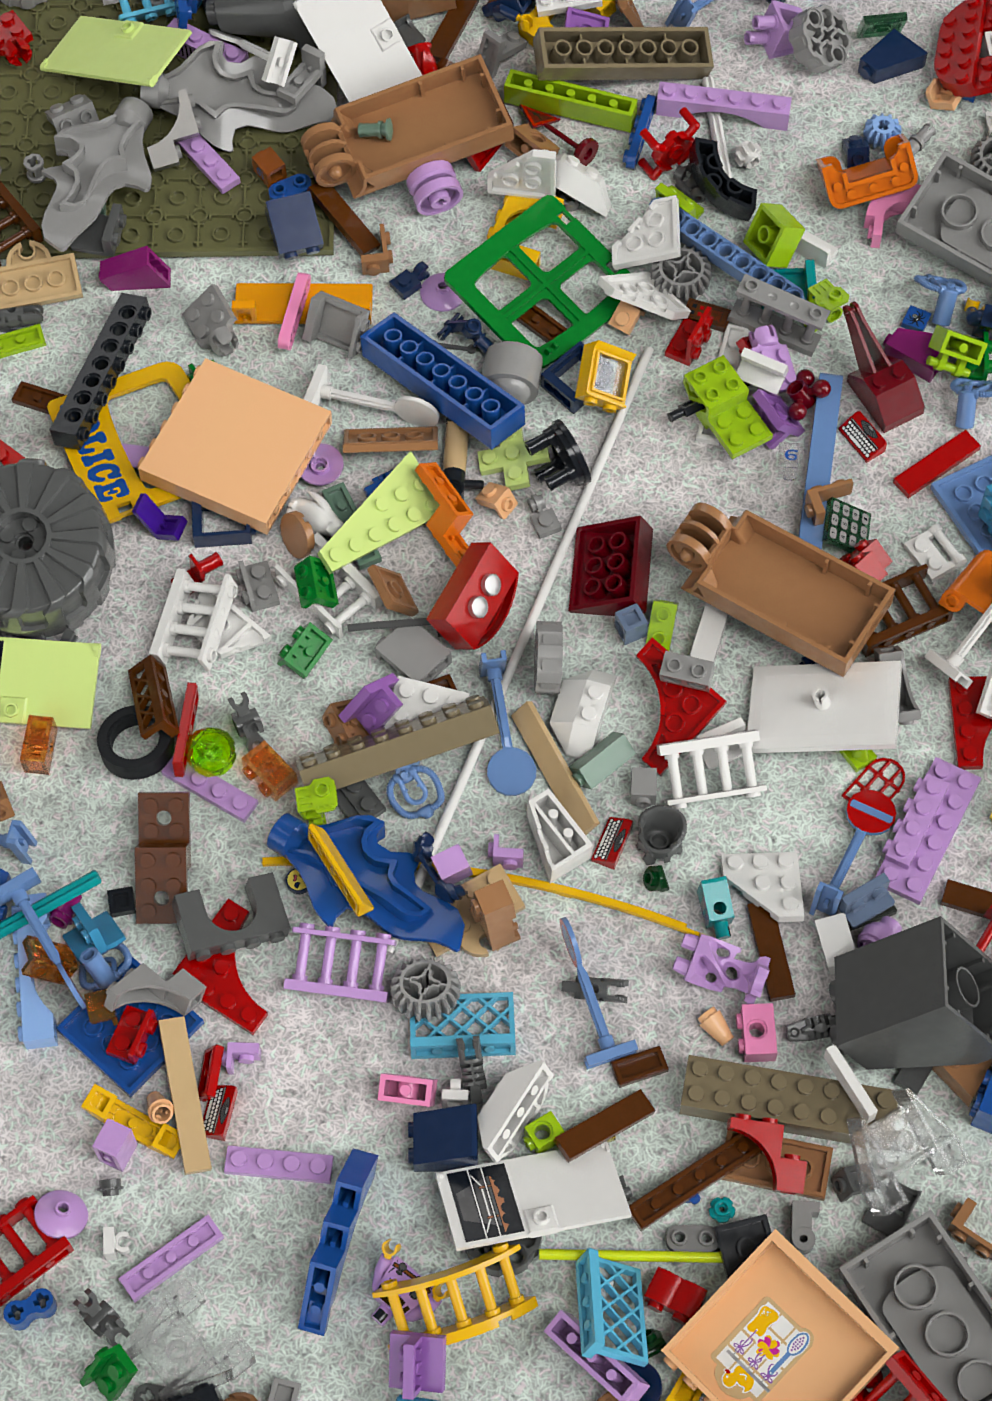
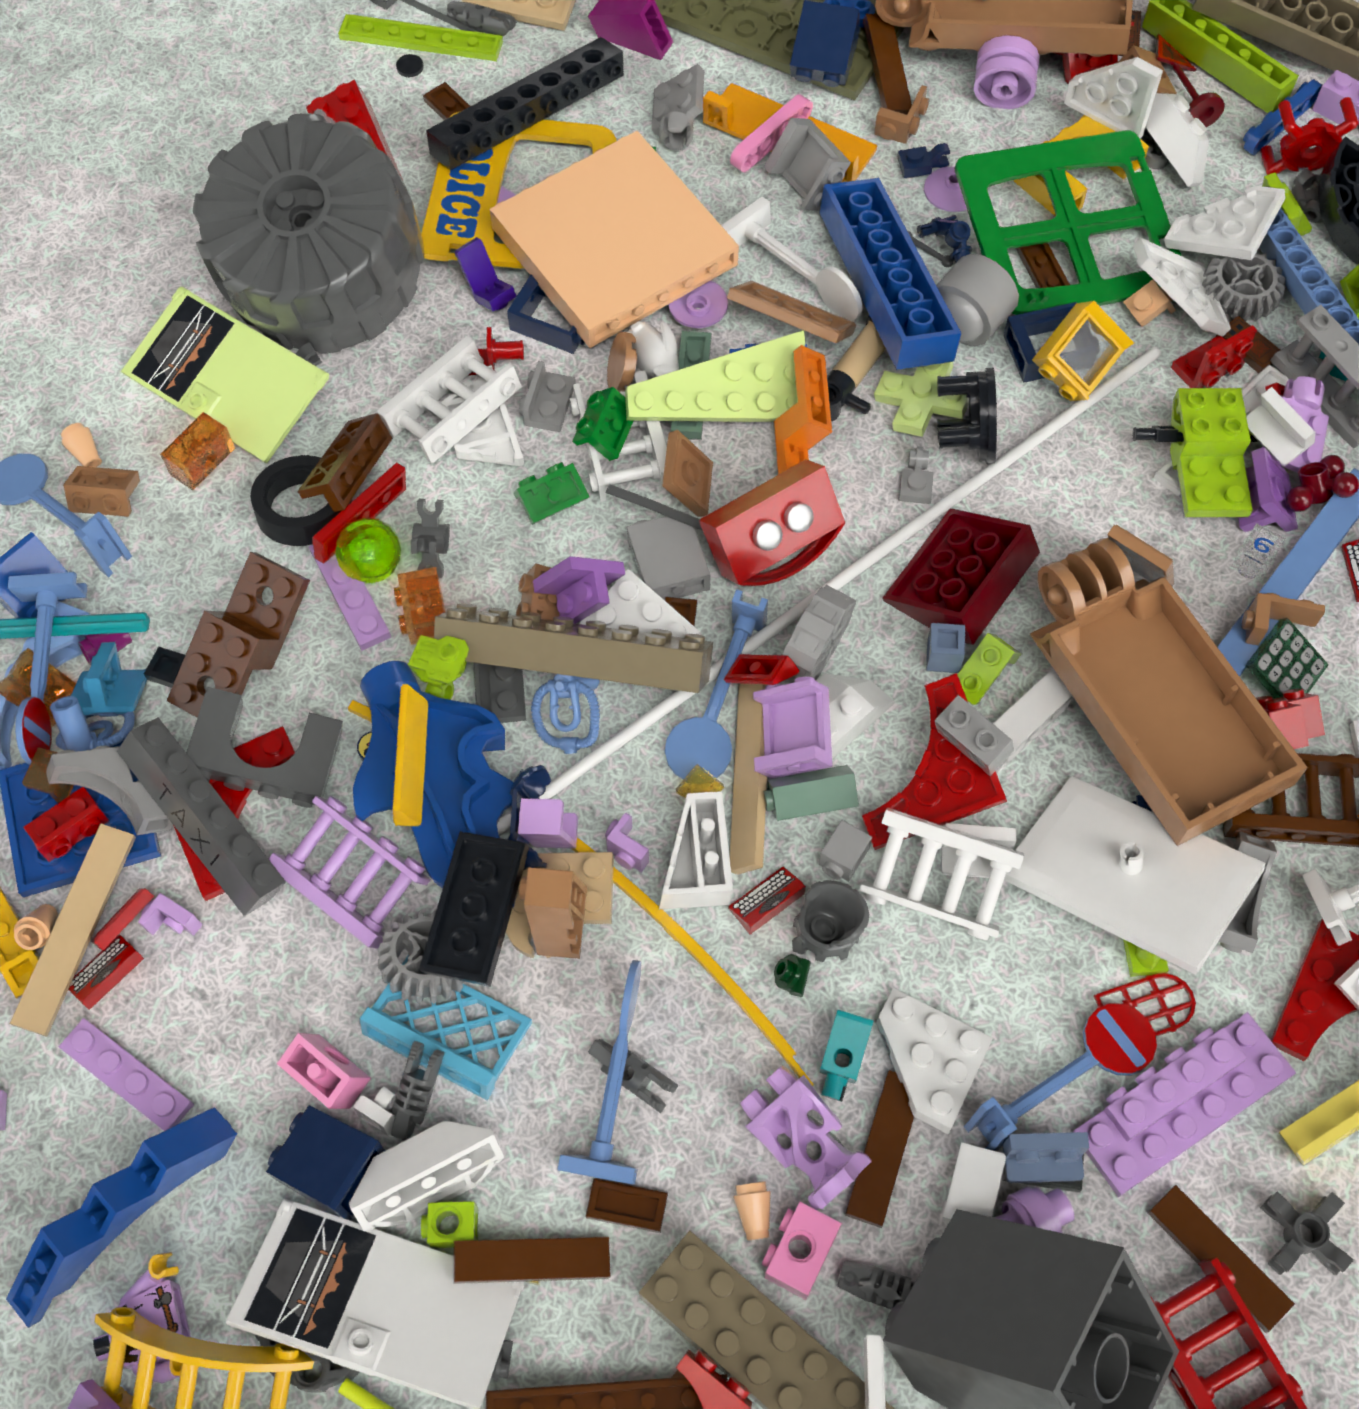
camera: 30 degrees right, 0 degrees up
(225, 979) = (201, 816): none -> dark grey brick
(444, 939) = (474, 908): none -> black tile
(497, 498) = (876, 432): light nougat bracket -> none
(525, 698) = (761, 669): none -> red slope
(525, 792) = (698, 782): none -> clear yellow tile
(570, 724) = (794, 728): none -> lavender panel
(726, 503) = (1142, 557): none -> medium nougat tile

